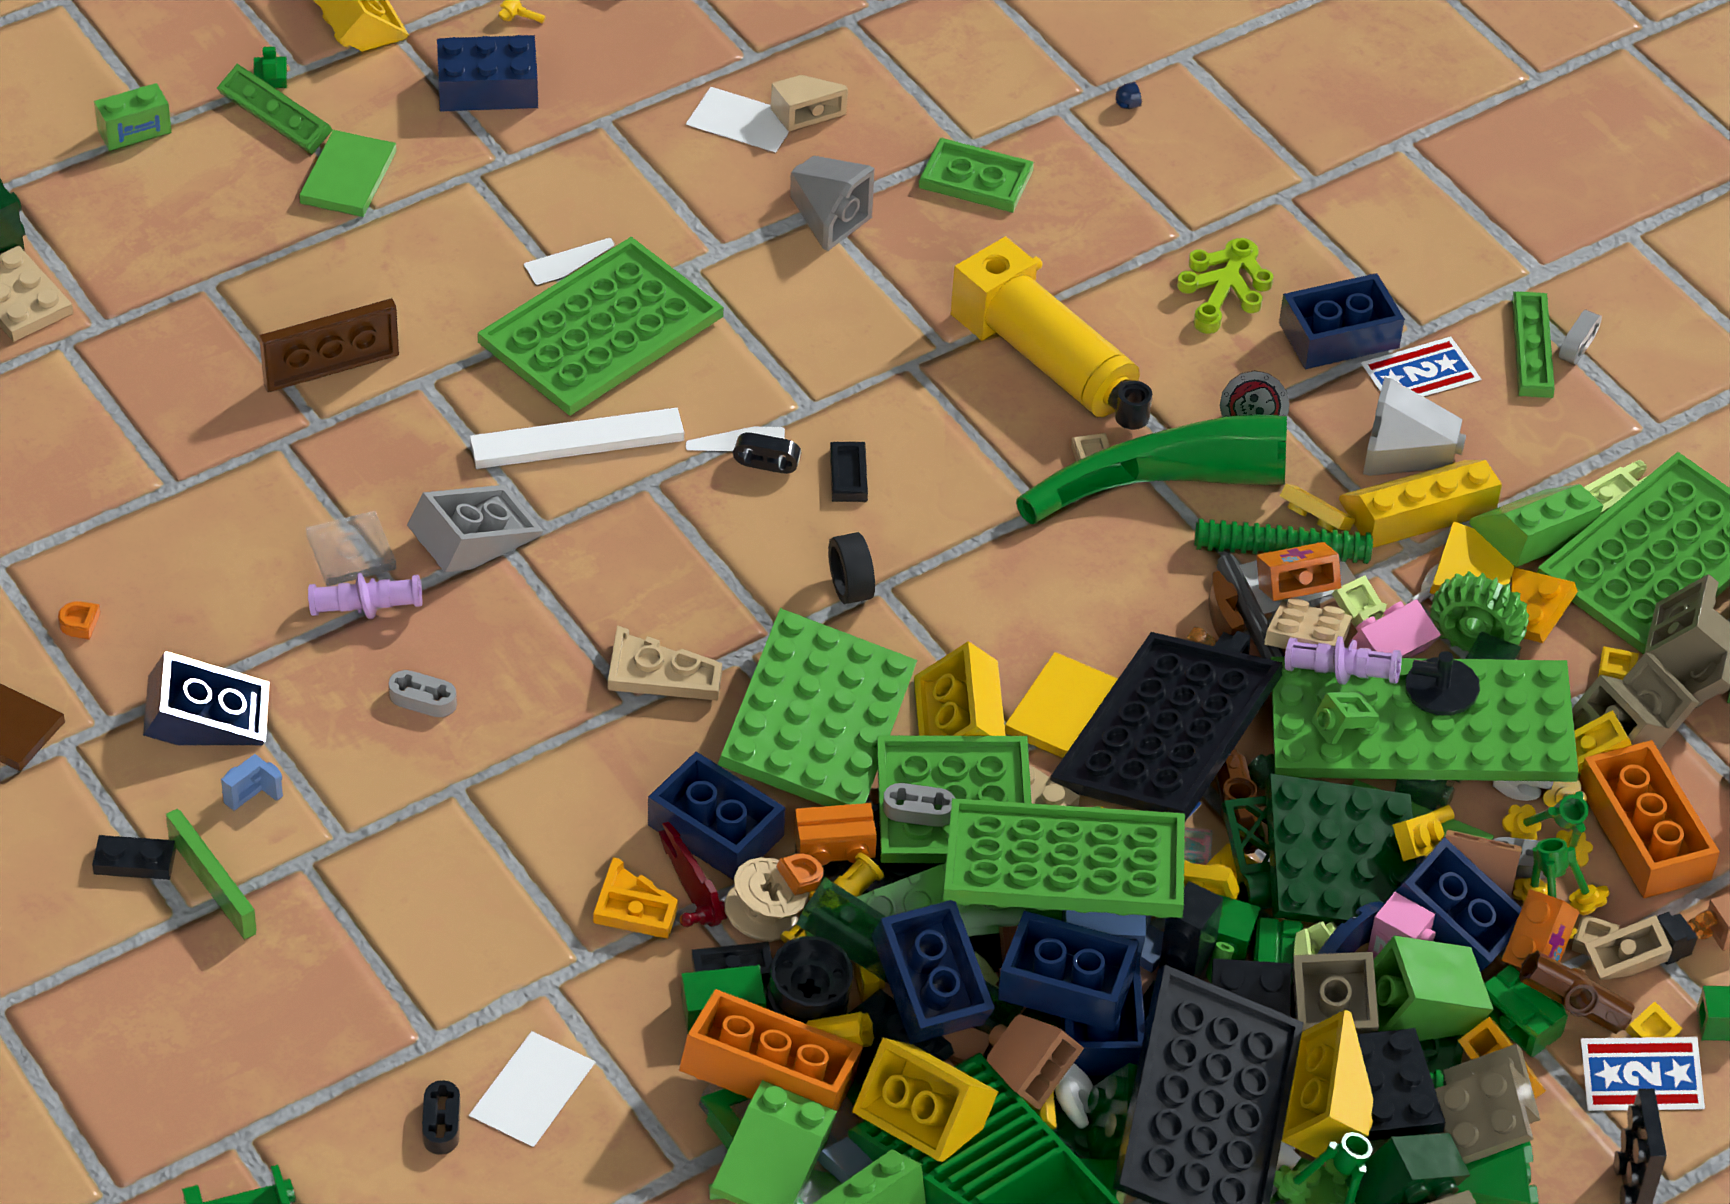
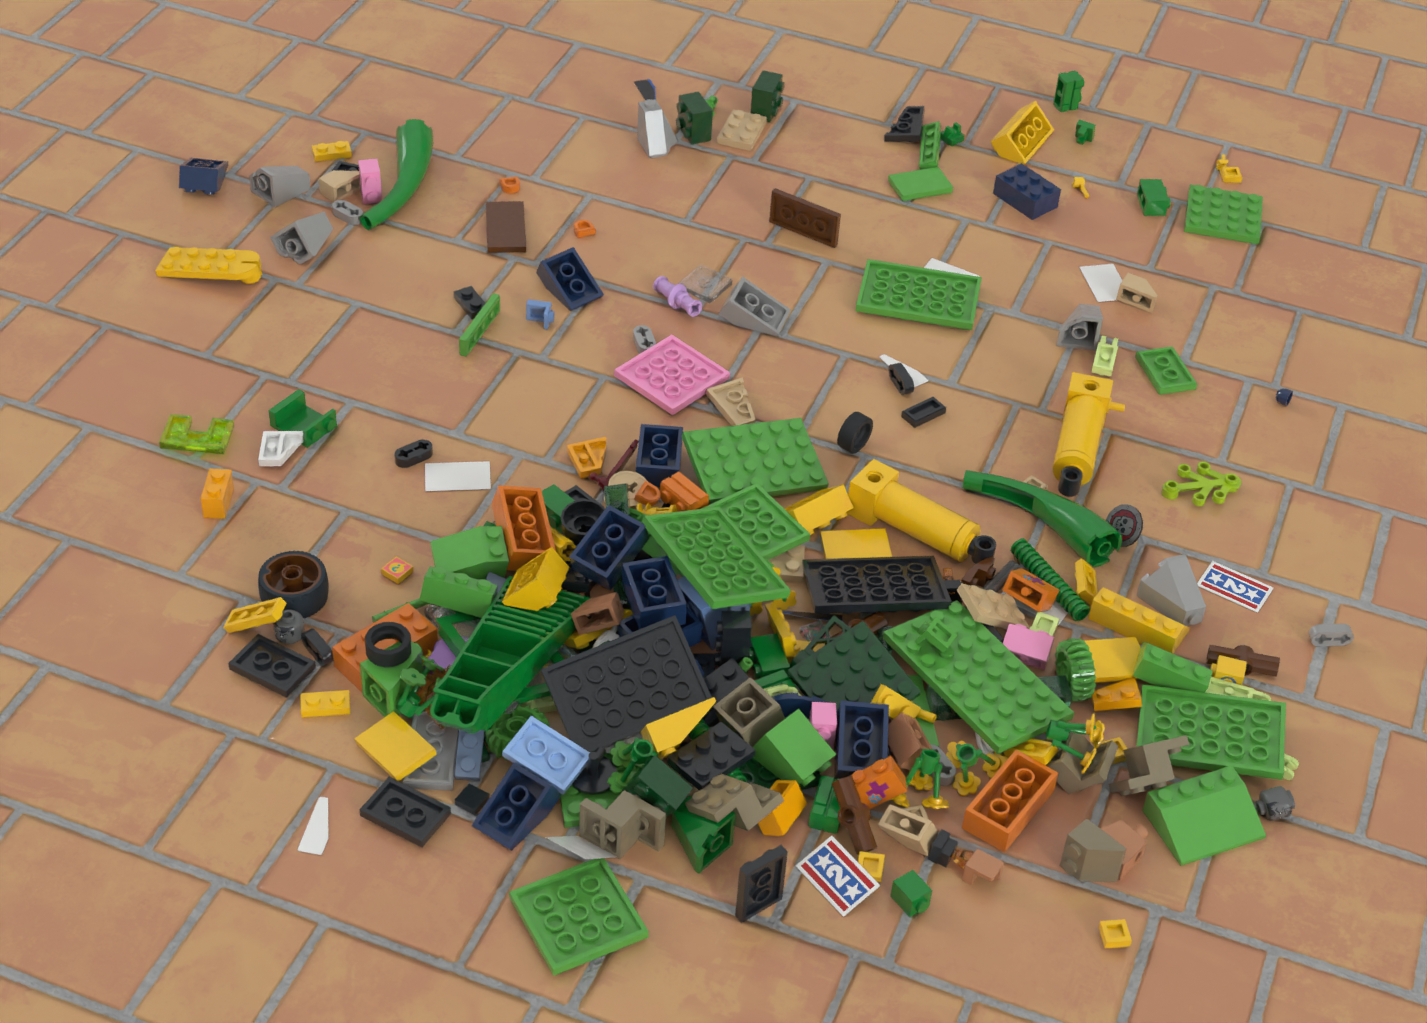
camera: 55 degrees right, 5 degrees down
(132, 116) = (874, 110): bright green brick -> none
(202, 102) = (908, 125): none -> black wing
(533, 703) = (671, 374): none -> bright pink plate
(576, 438) = (845, 319): white tile -> none
(905, 216) = (1105, 357): none -> yellowish green hinge
(918, 804) = (729, 509): light grey beam -> none
(1025, 613) = (880, 496): none -> yellow piece
(1341, 321) = (1221, 533): dark blue brick -> none
(1343, 660) = (970, 618): lavender piece -> none
(1442, 685) = (999, 666): black shield -> none
(1533, 344) = (1302, 621): bright green tile -> none
(1562, 446) = (1255, 662): none -> reddish brown piece
(1577, 467) = (1229, 669): none -> yellow brick
(1623, 661) = (1060, 730): none -> plant

